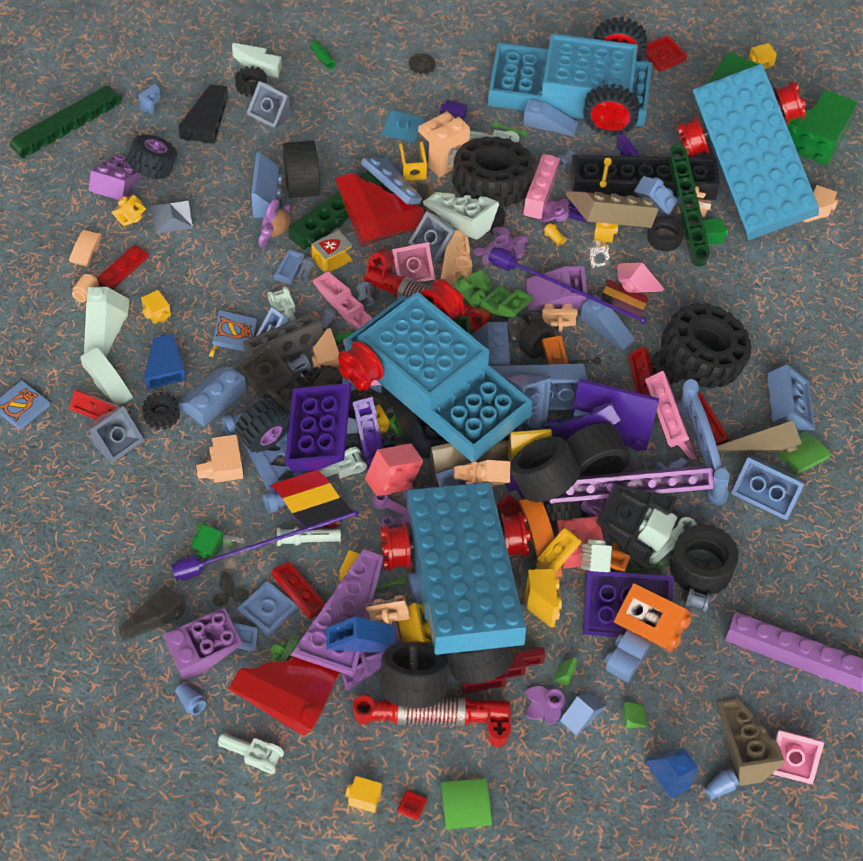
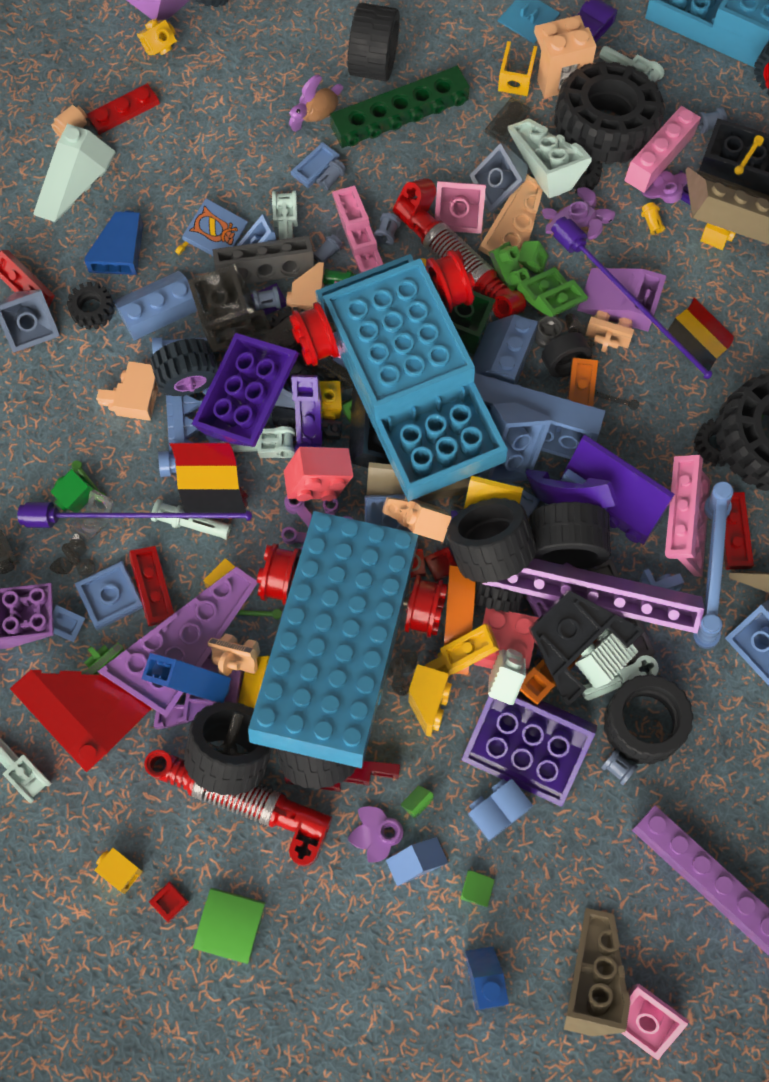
camera: 25 degrees right, 15 degrees up
(84, 248) = (89, 70): light nougat slope -> none
(105, 377) = (46, 244): light aqua slope -> none
(155, 307) = (137, 171): yellow brick -> none
(171, 216) = (206, 58): sand blue slope -> none
(265, 185) = (324, 50): medium blue slope -> none
(331, 252) = (369, 161): piece -> none
(376, 212) = (443, 123): red slope -> none
(392, 178) = (481, 84): medium blue wing -> none
(523, 133) = (674, 69): bright green hinge -> none
(548, 118) = (713, 57): medium blue slope -> none
(596, 247) = (698, 252): clear bracket -> none
(606, 323) = (666, 361): medium blue slope -> none
(637, 278) = (728, 313): bright pink slope -> none
(641, 369) = (681, 438): red plate -> none
(660, 564) = (594, 702): bright green hinge -> none
(669, 625) = (567, 794): orange brick -> none
(721, 784) = (542, 1019): medium blue cone -> none

